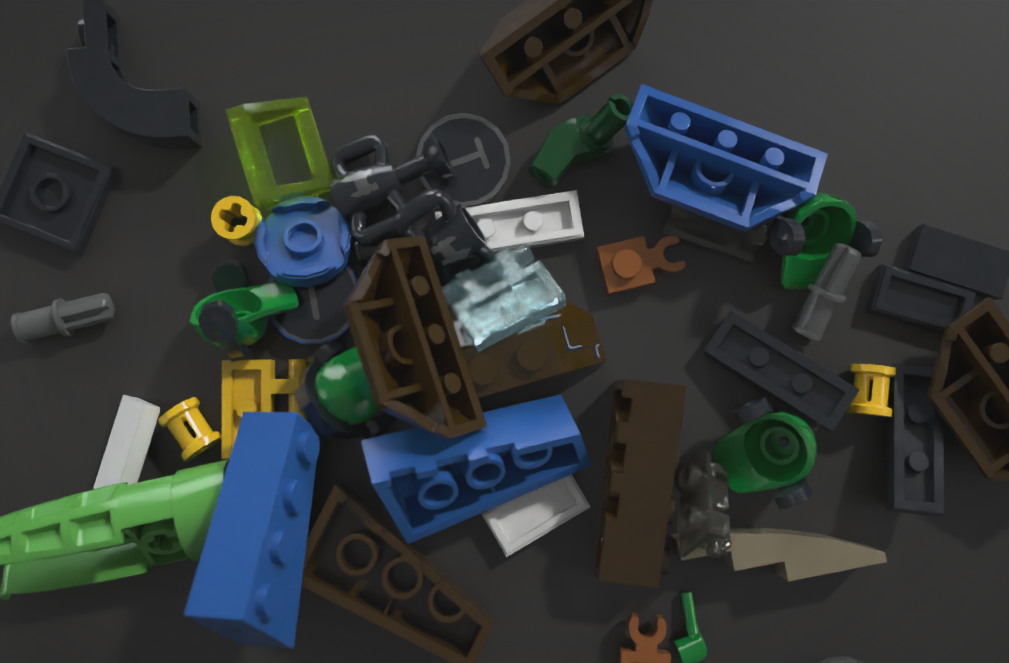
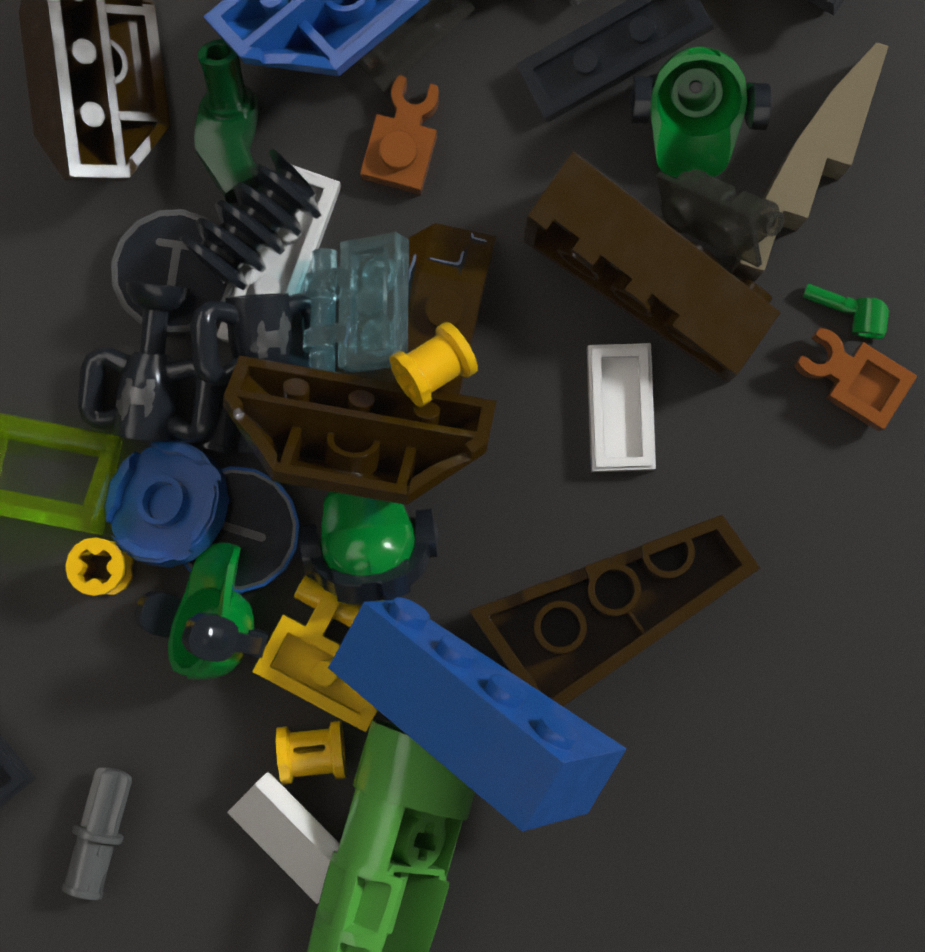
camera: 60 degrees left, 0 degrees up
(441, 482) = (532, 484): blue wedge -> none
(486, 370) = (433, 364): none -> yellow bush
(520, 195) = (254, 221): none -> black piece

